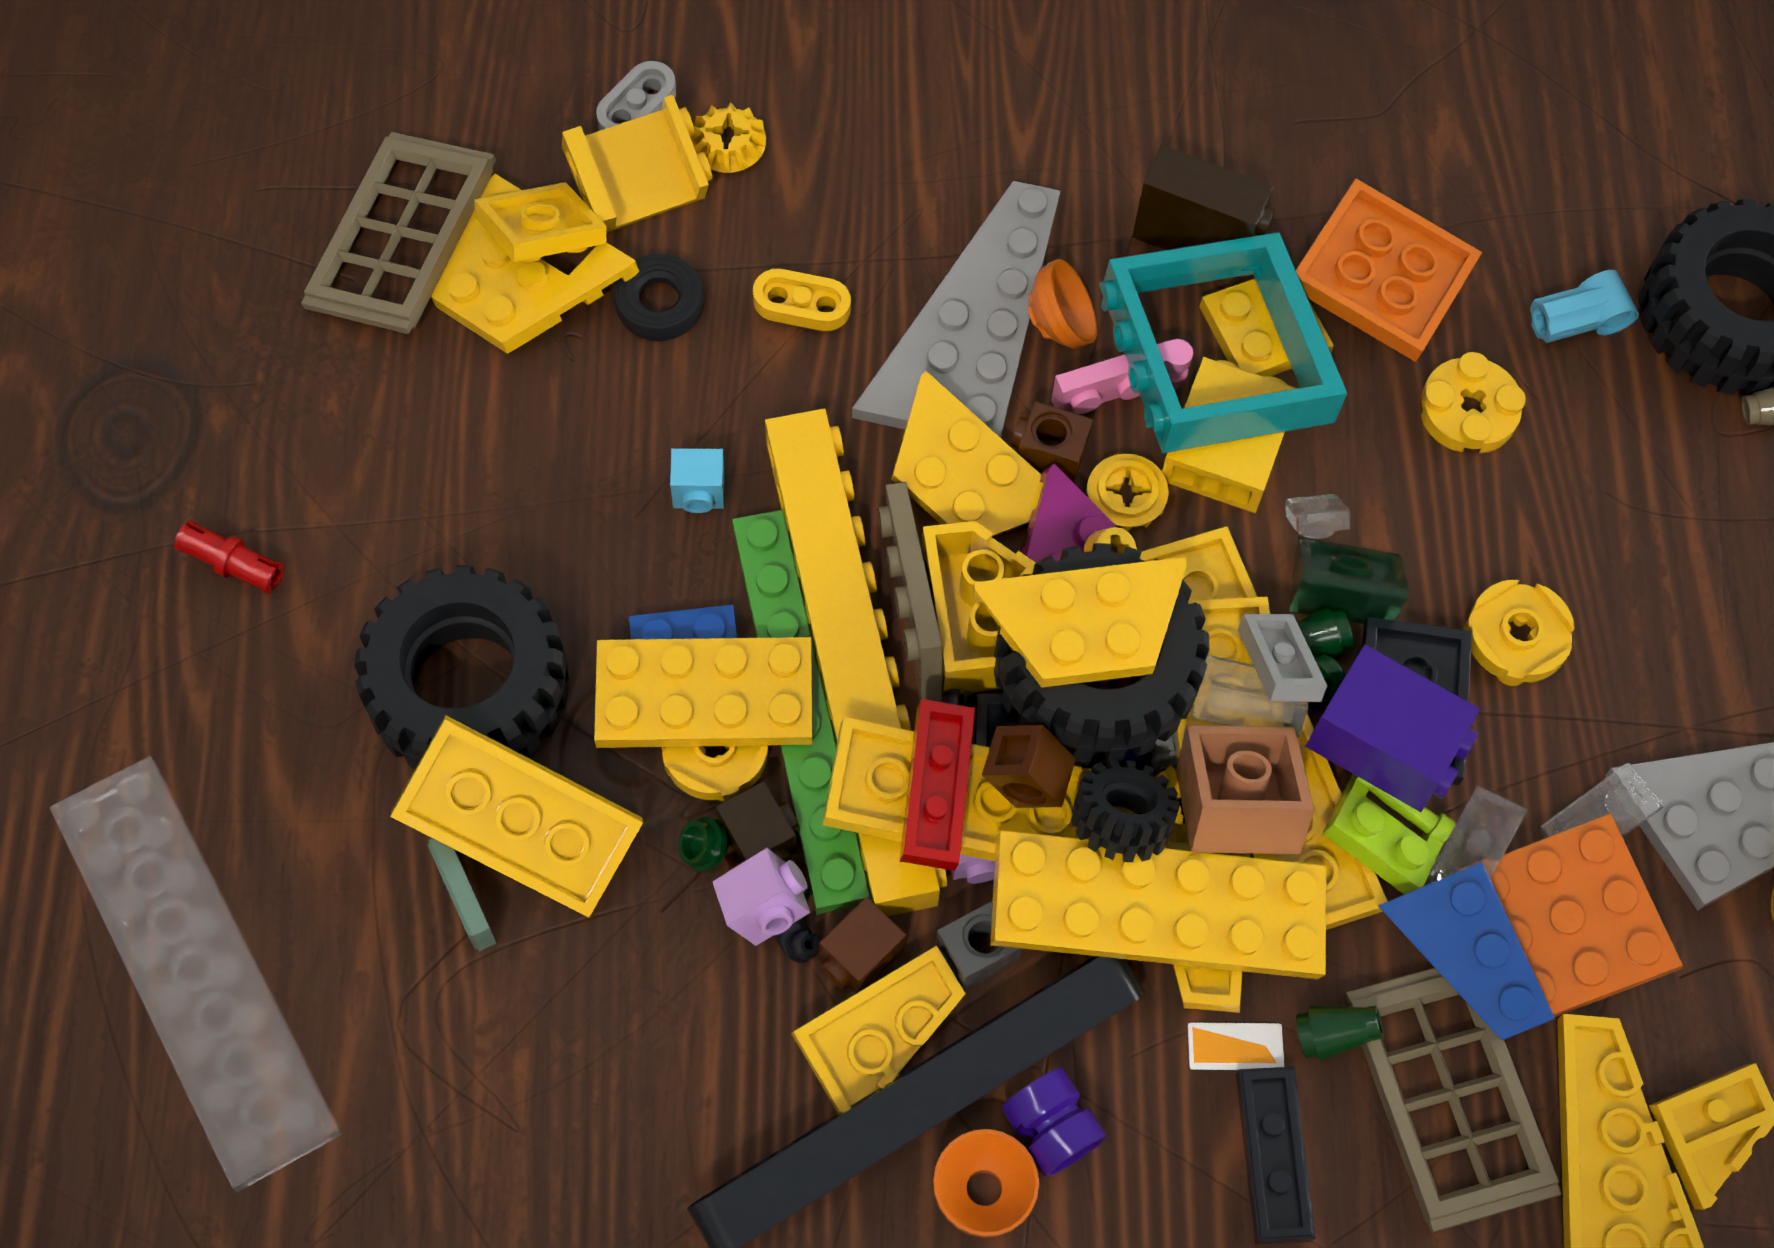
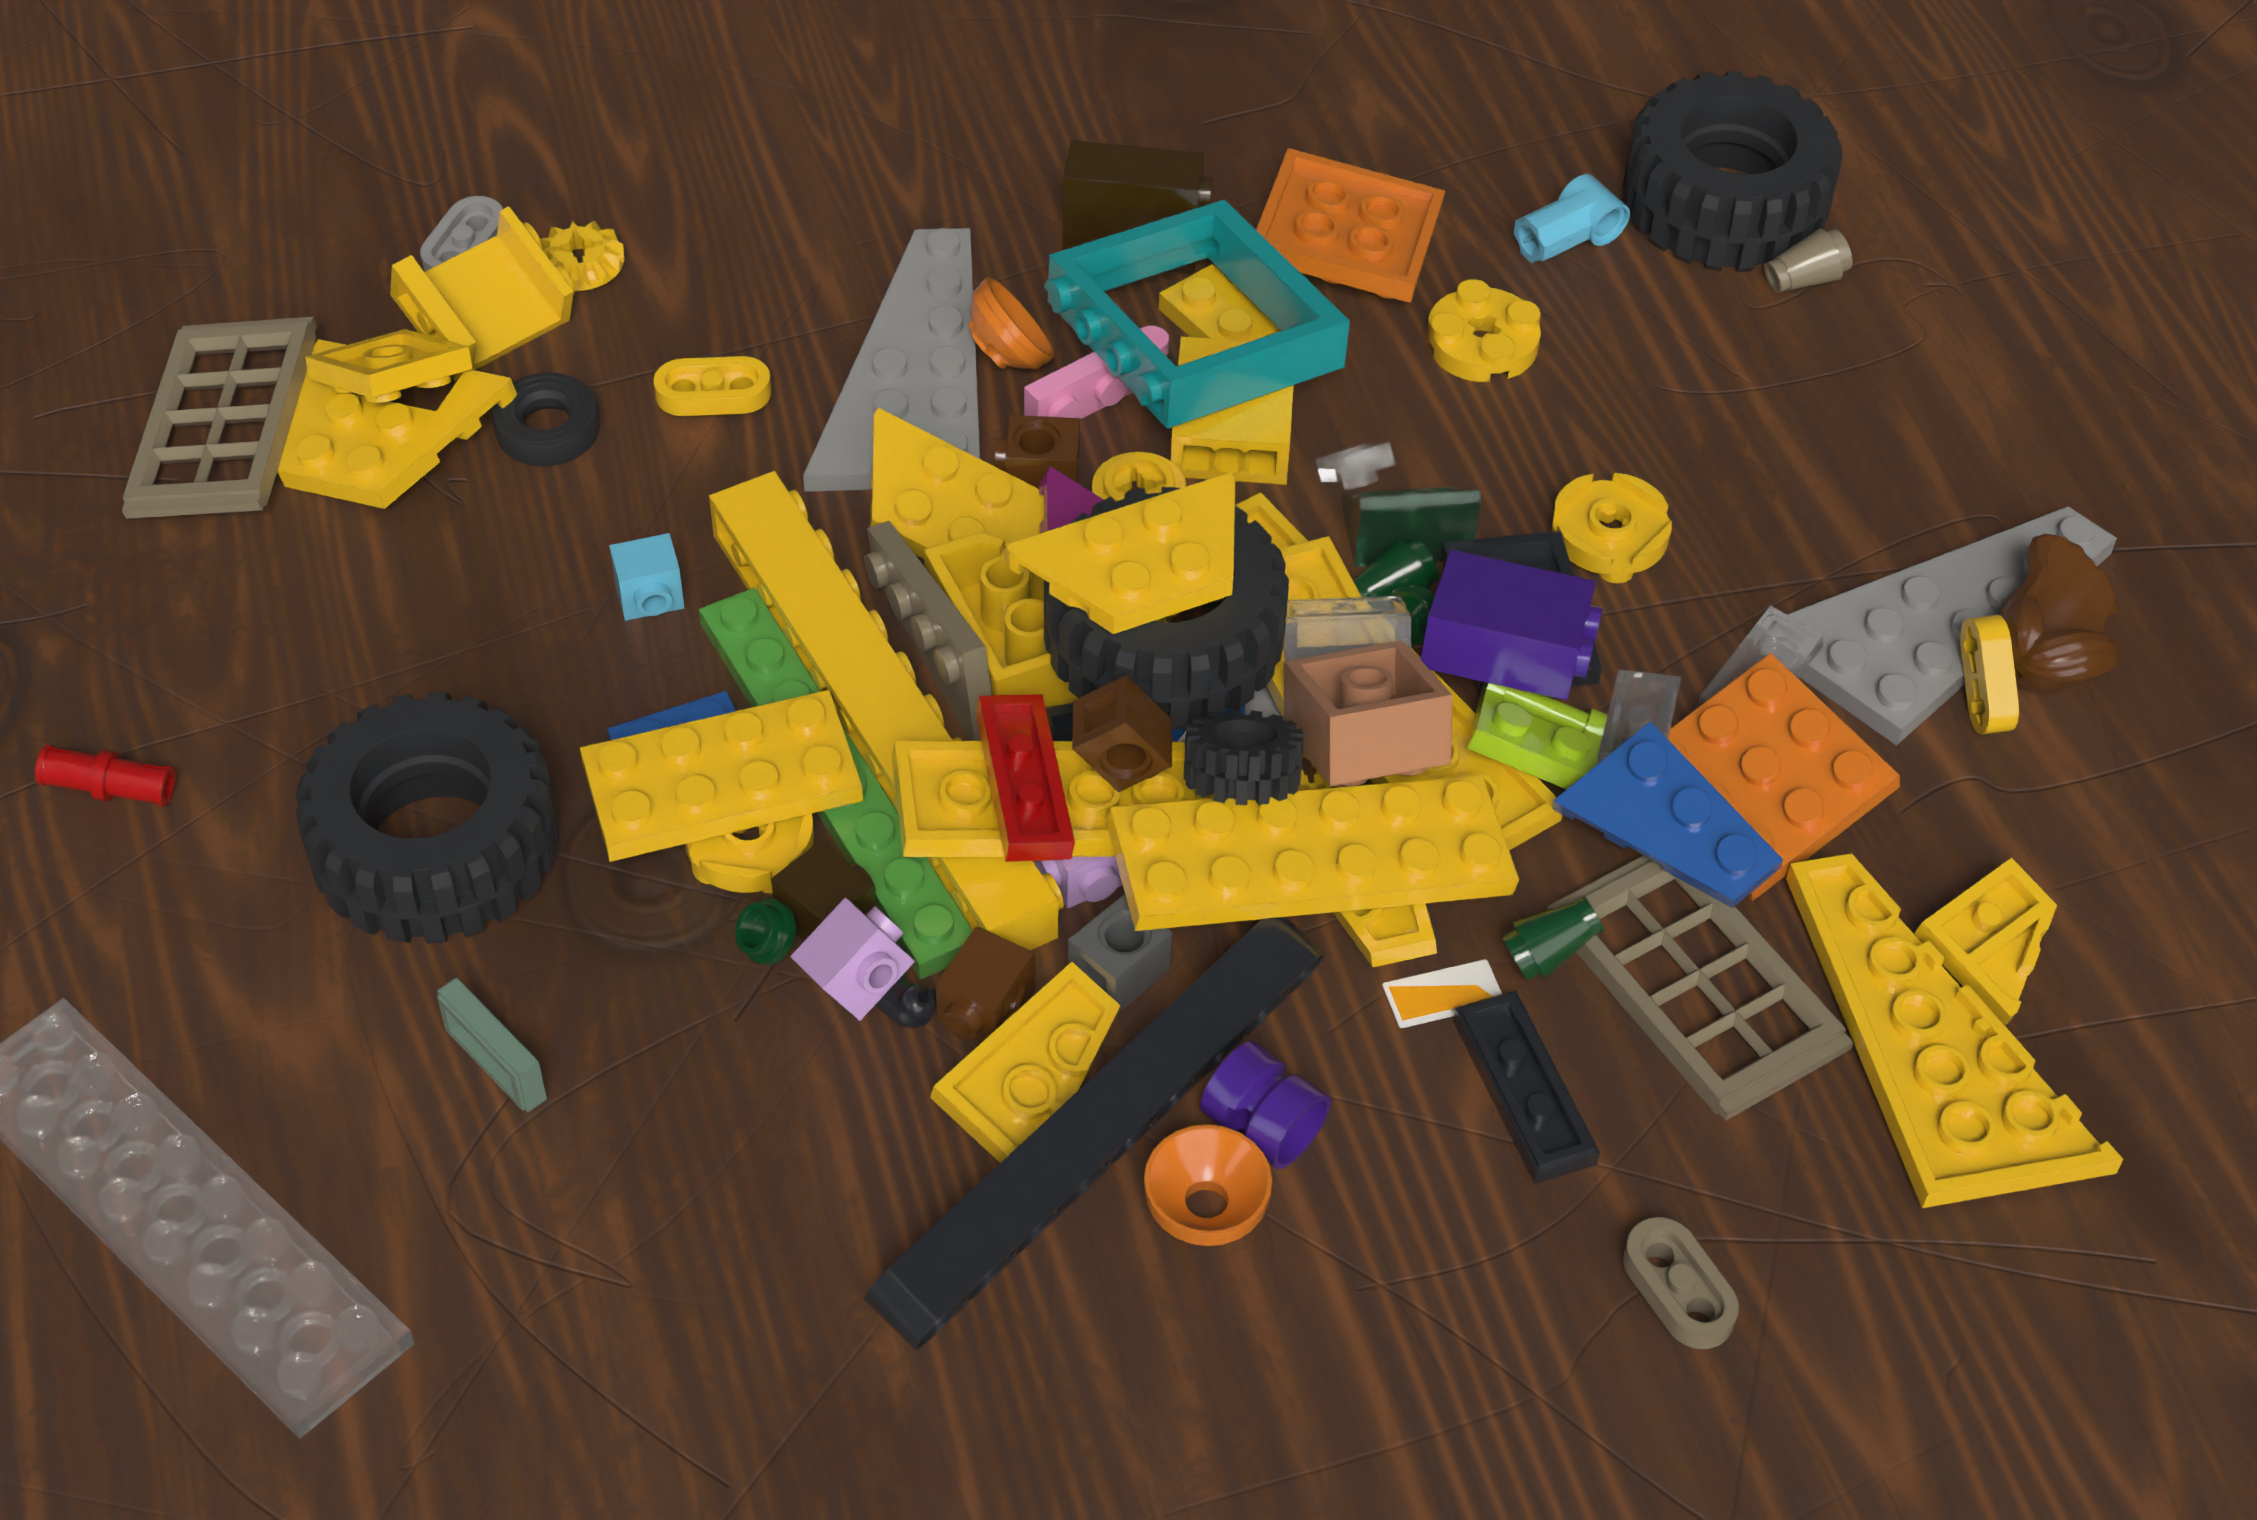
camera: 15 degrees left, 15 degrees down
(516, 816) = (539, 935): yellow plate -> none
(1282, 658) = (1366, 576): light grey plate -> none

